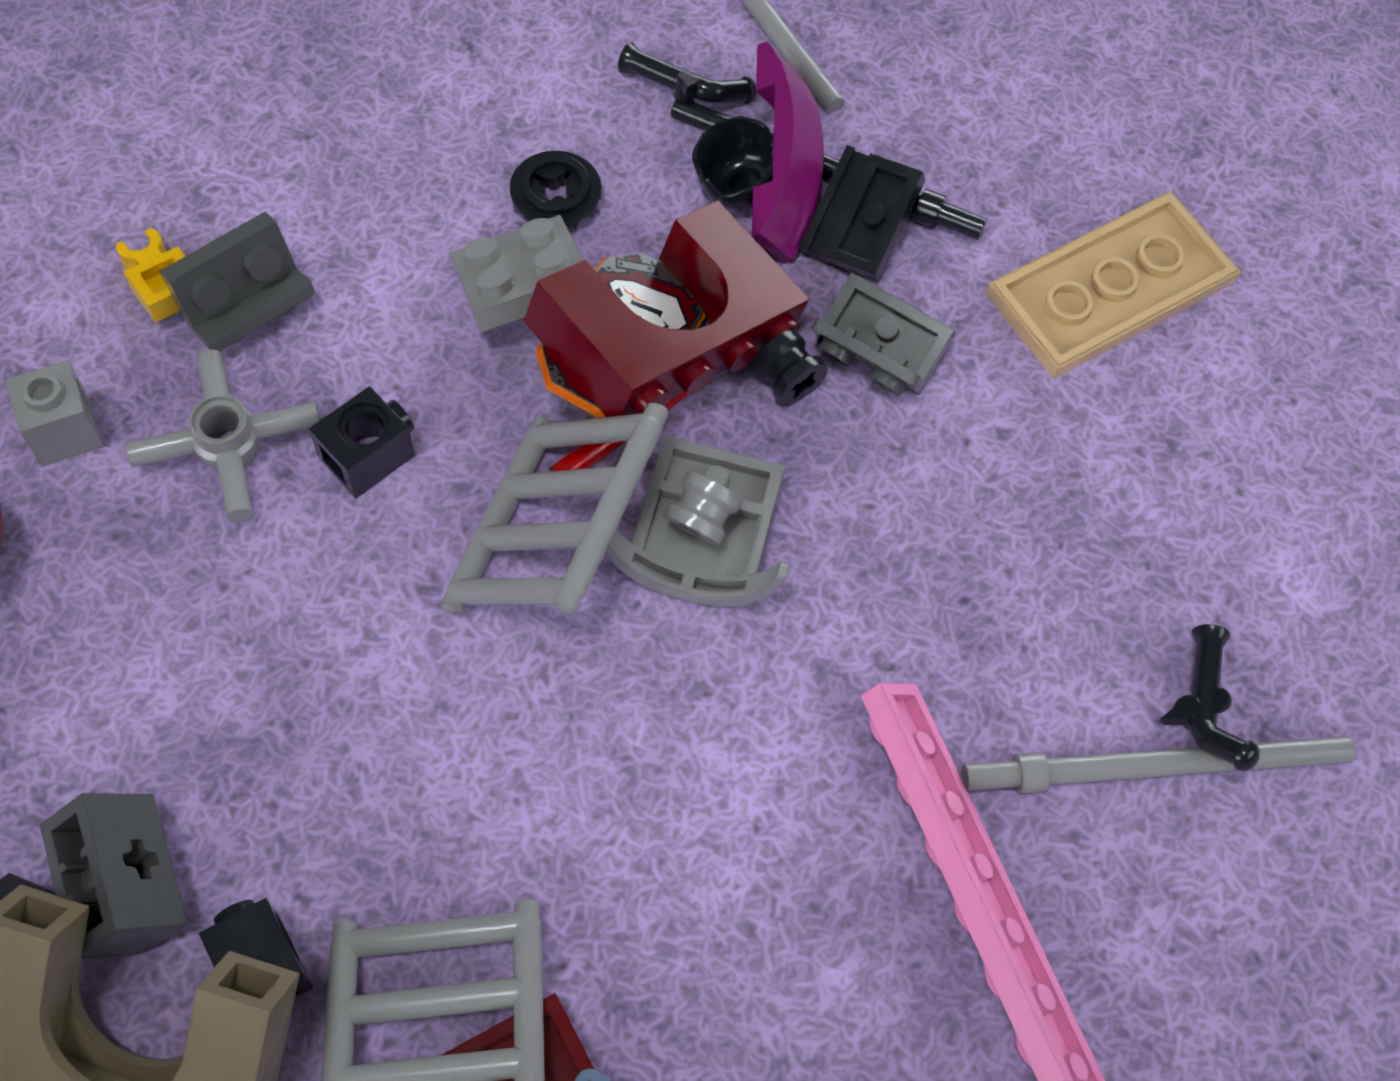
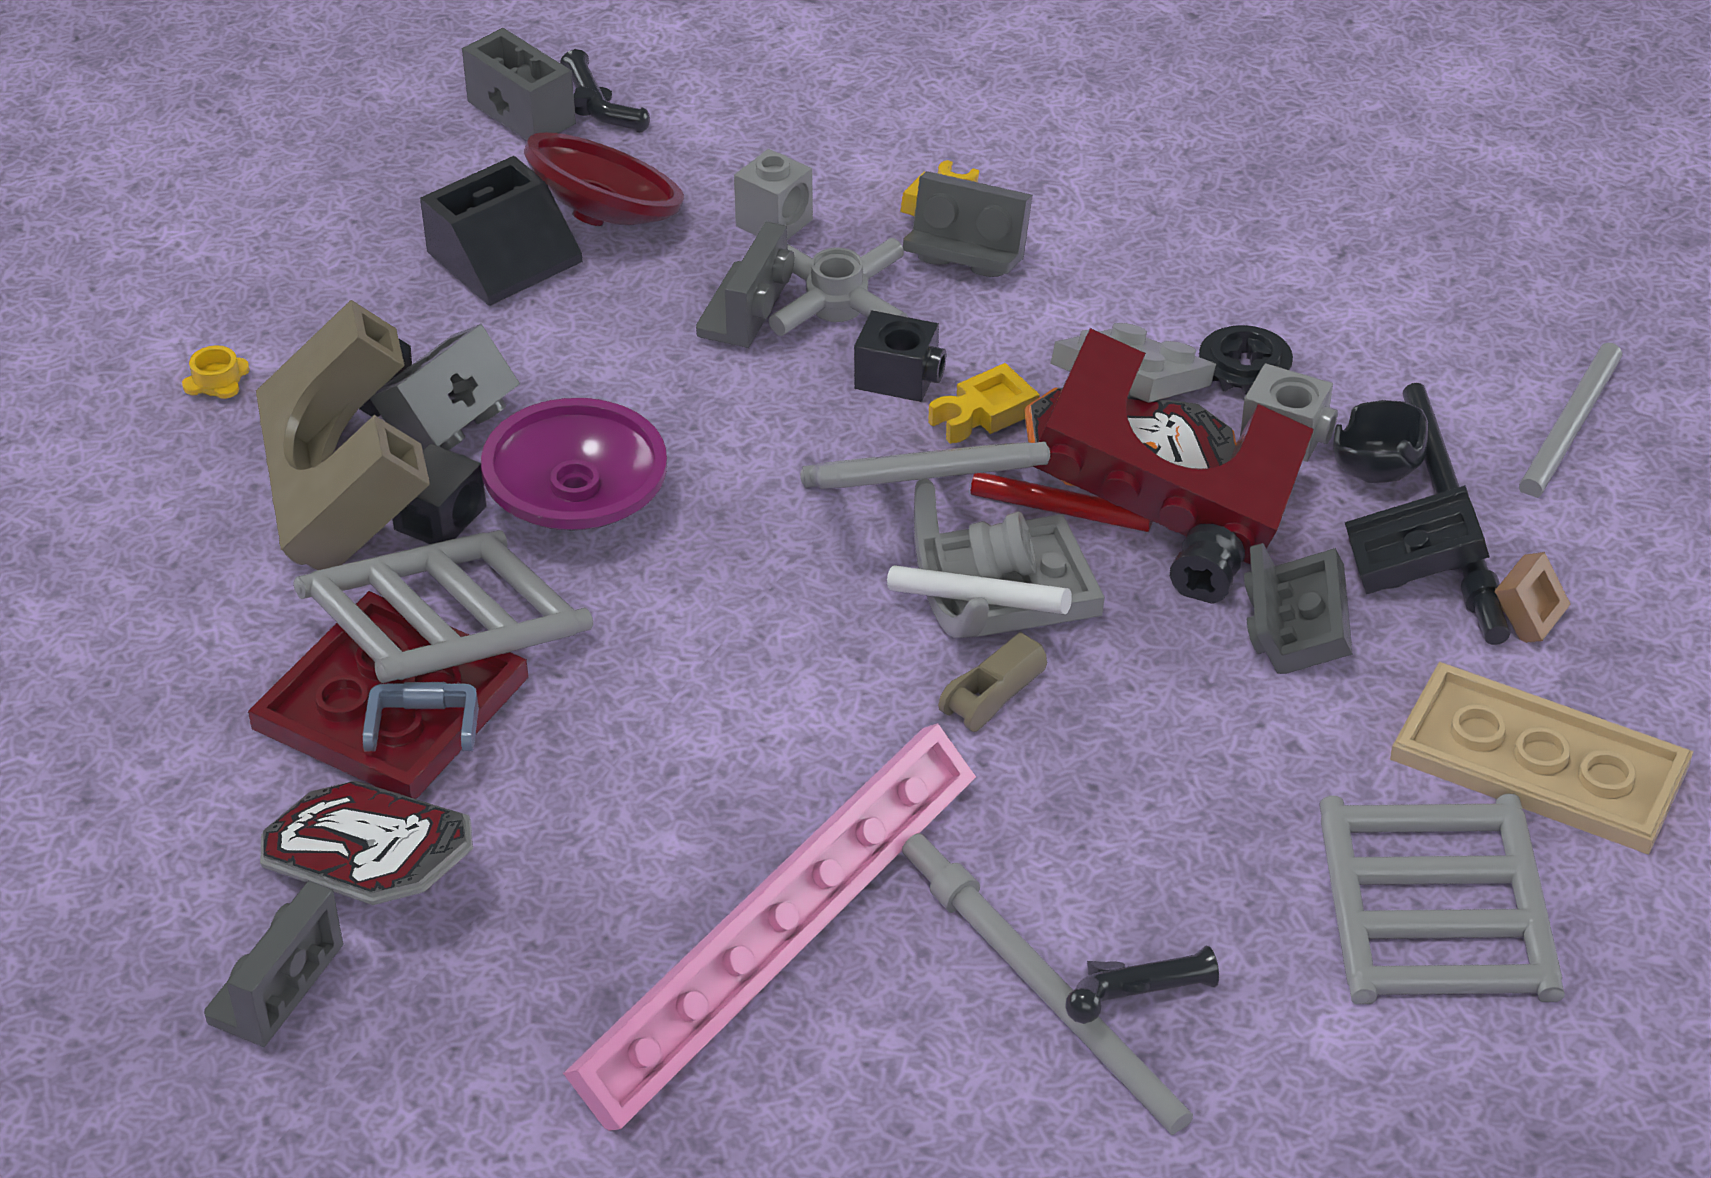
camera: 65 degrees right, 20 degrees down
(171, 516) = (749, 290): none -> dark grey bracket
(312, 766) = (574, 463): none -> magenta dish
(471, 407) = (988, 399): none -> yellow plate
(649, 201) = (1295, 397): none -> light grey brick
(686, 84) = (1436, 381): black piece -> none
(728, 555) = (968, 587): none -> white bar
(787, 204) = (1423, 460): magenta slope -> none
(814, 600) = (995, 679): none -> dark tan bar
(965, 183) = (1532, 597): none -> medium nougat plate
(1215, 505) = (1515, 867): none -> light grey bar

